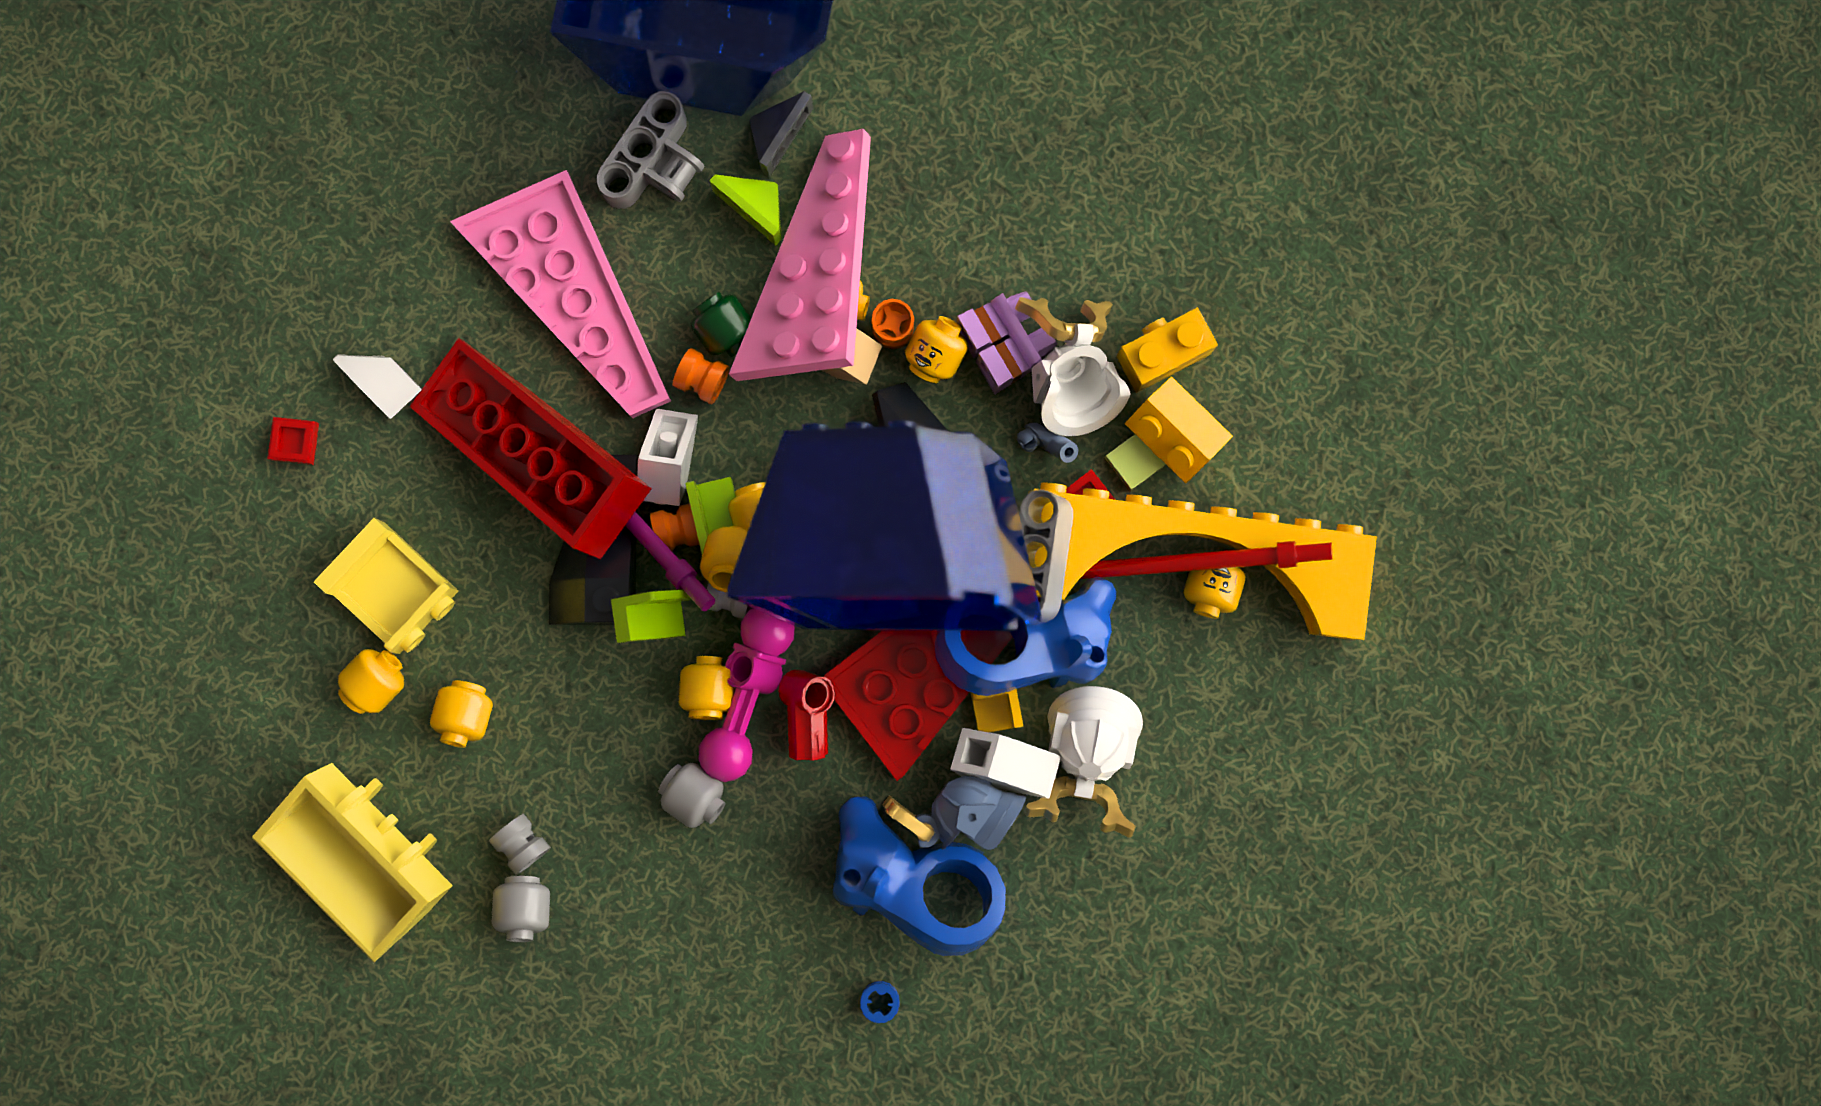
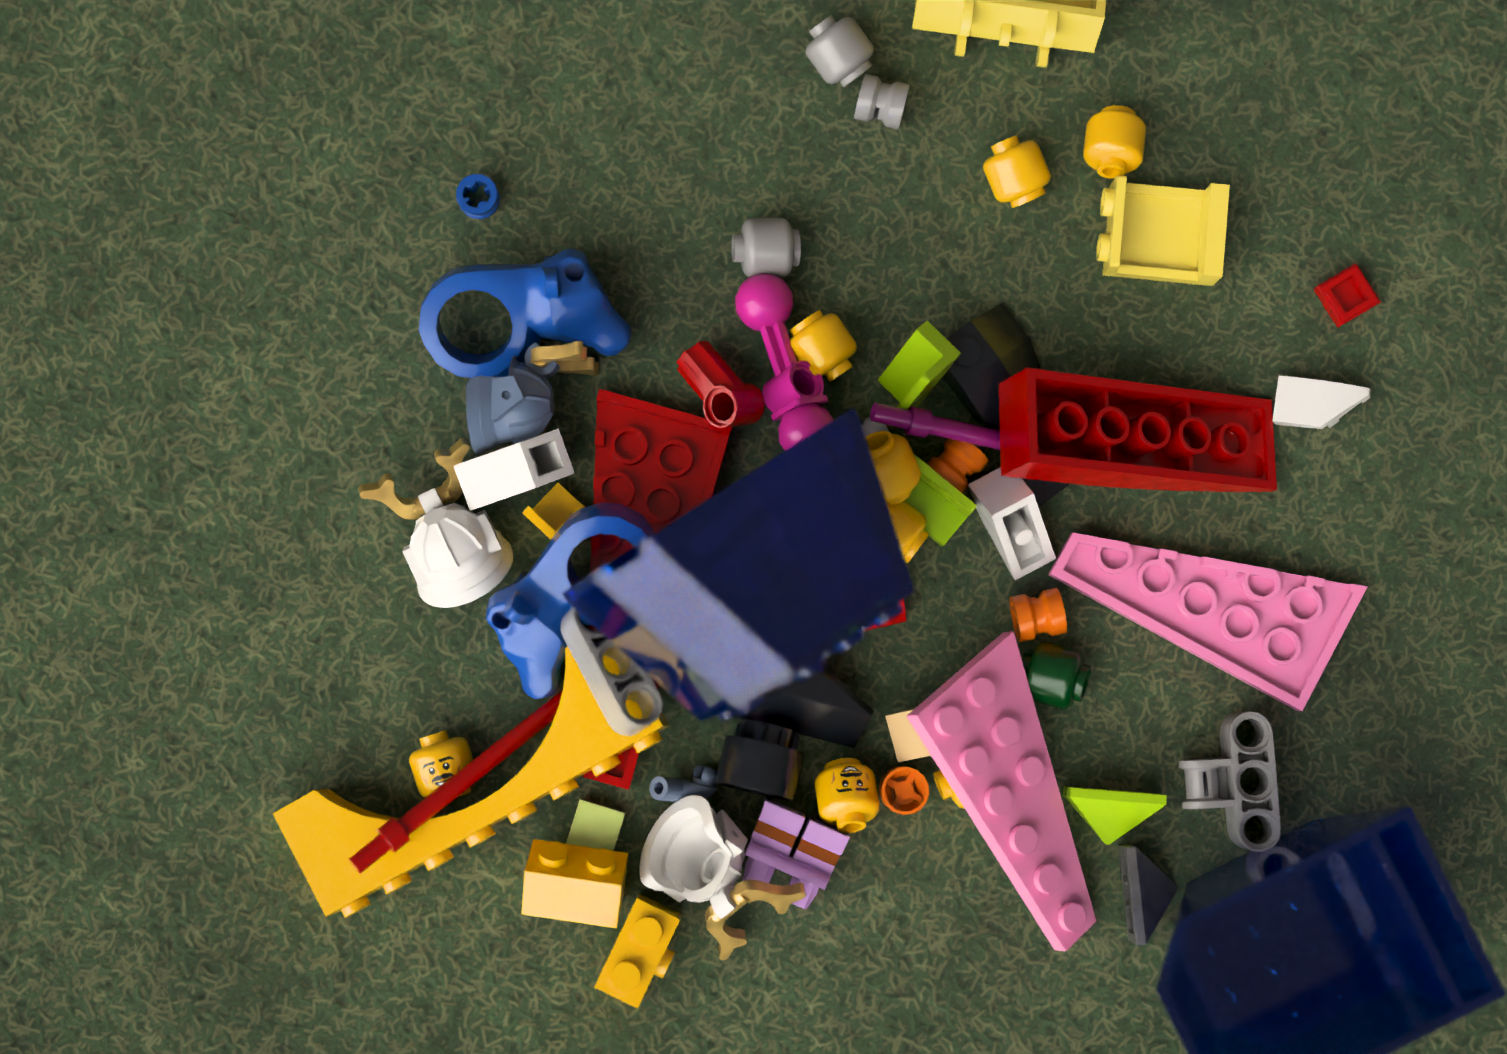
camera: 145 degrees right, 0 degrees up
(981, 411) = (761, 760): none -> black piece

